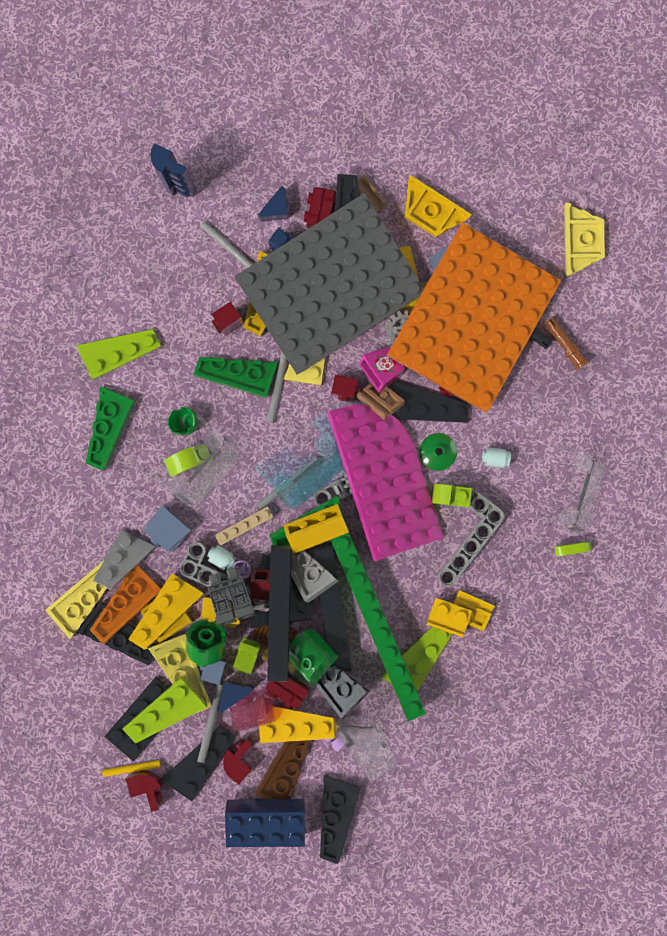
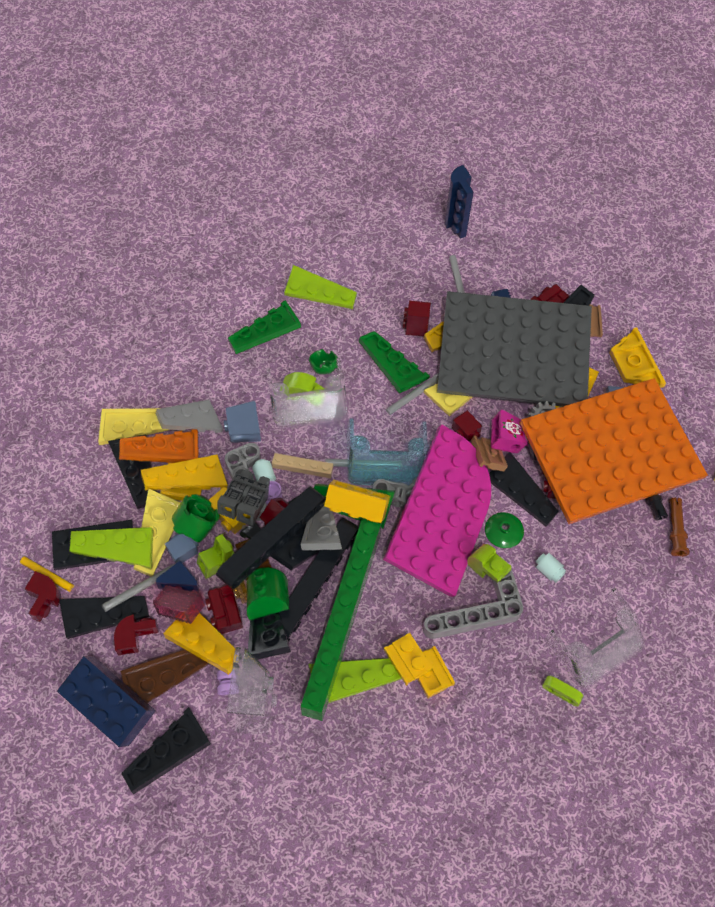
camera: 35 degrees right, 25 degrees down
(275, 208) = (514, 279): dark blue slope -> none

